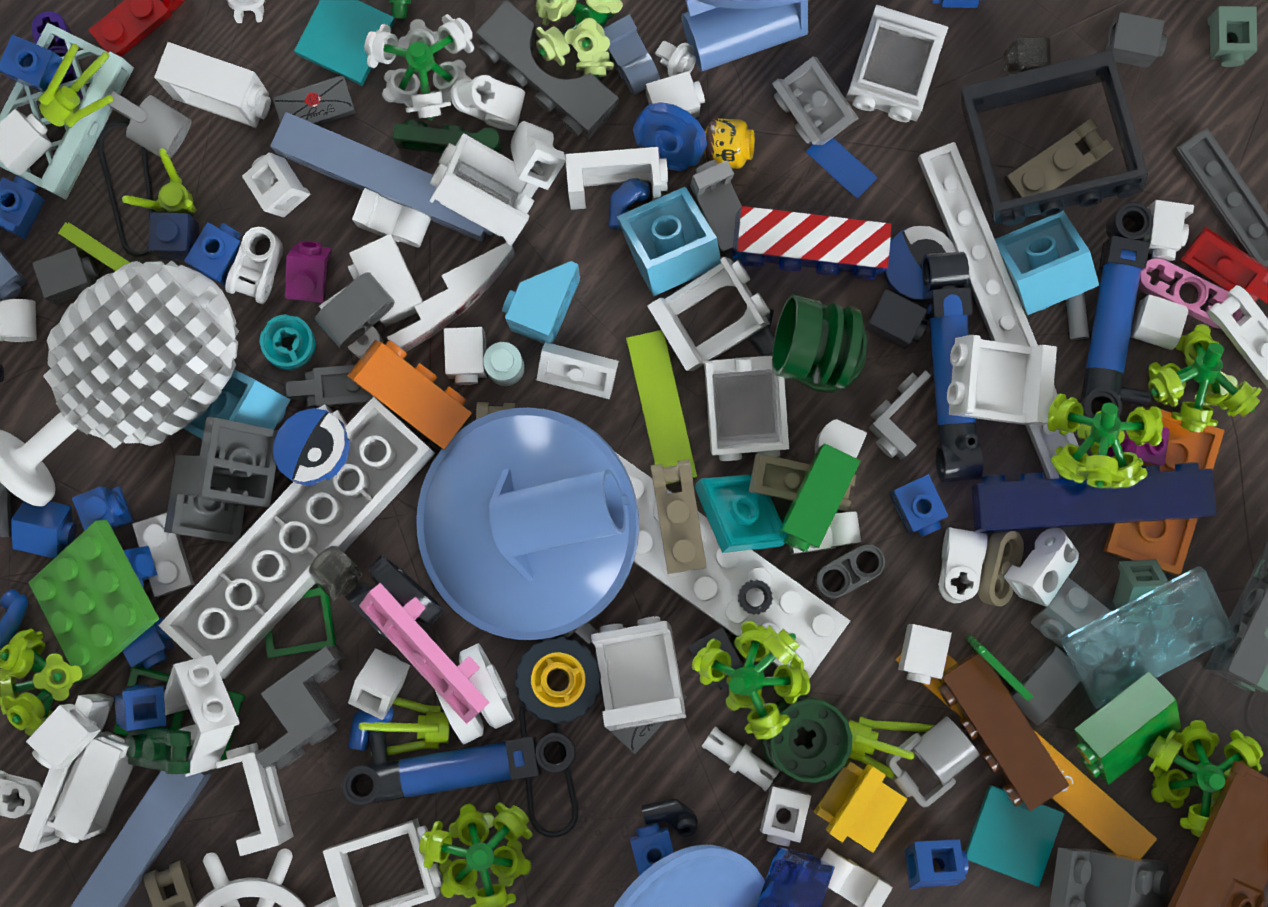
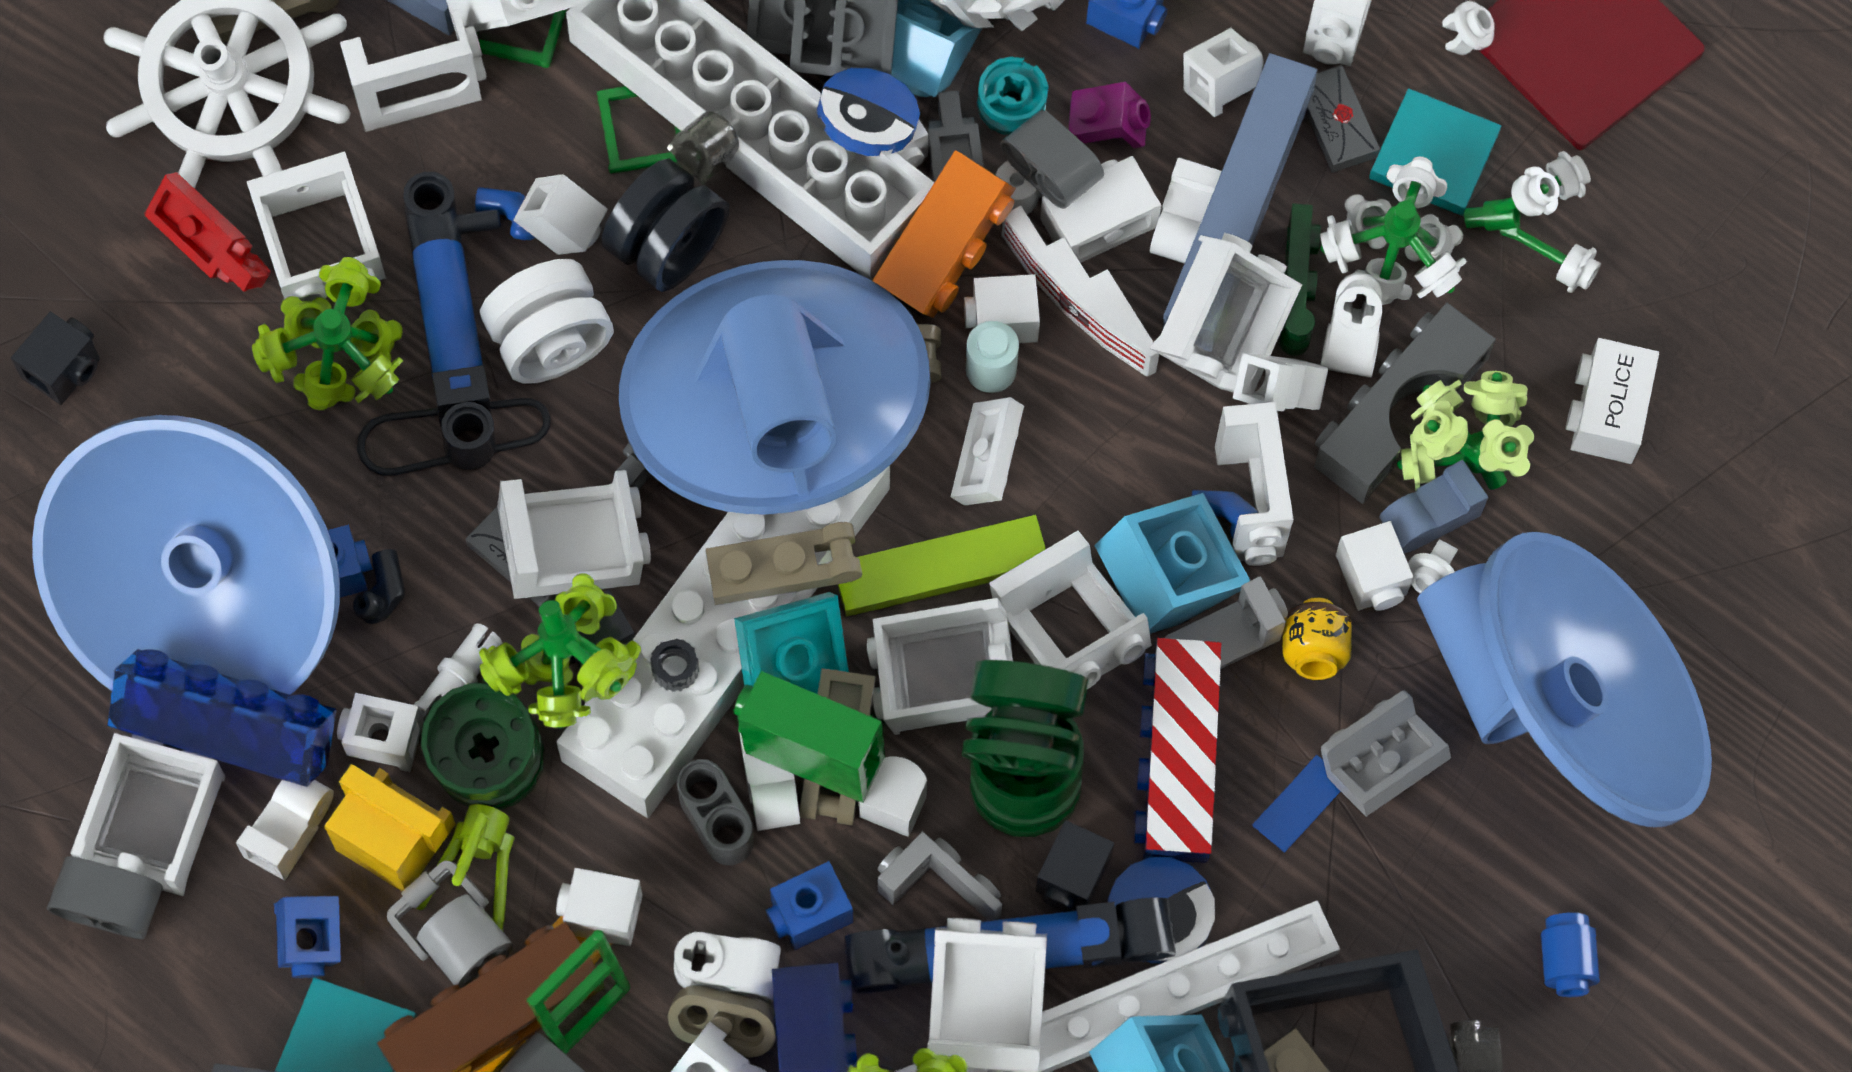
camera: 85 degrees right, 15 degrees down
(255, 267) = (1110, 51): white piece -> none
(302, 707) = (530, 122): dark grey bracket -> none
(423, 653) = (631, 206): bright pink hinge -> none
(432, 727) = (502, 270): lime plant -> none
(542, 303) = (1074, 397): medium azure slope -> none
(557, 655) = (559, 406): black wheel -> none
(673, 132) = (1320, 557): blue tile -> none
(896, 64) = (1448, 868): window -> none

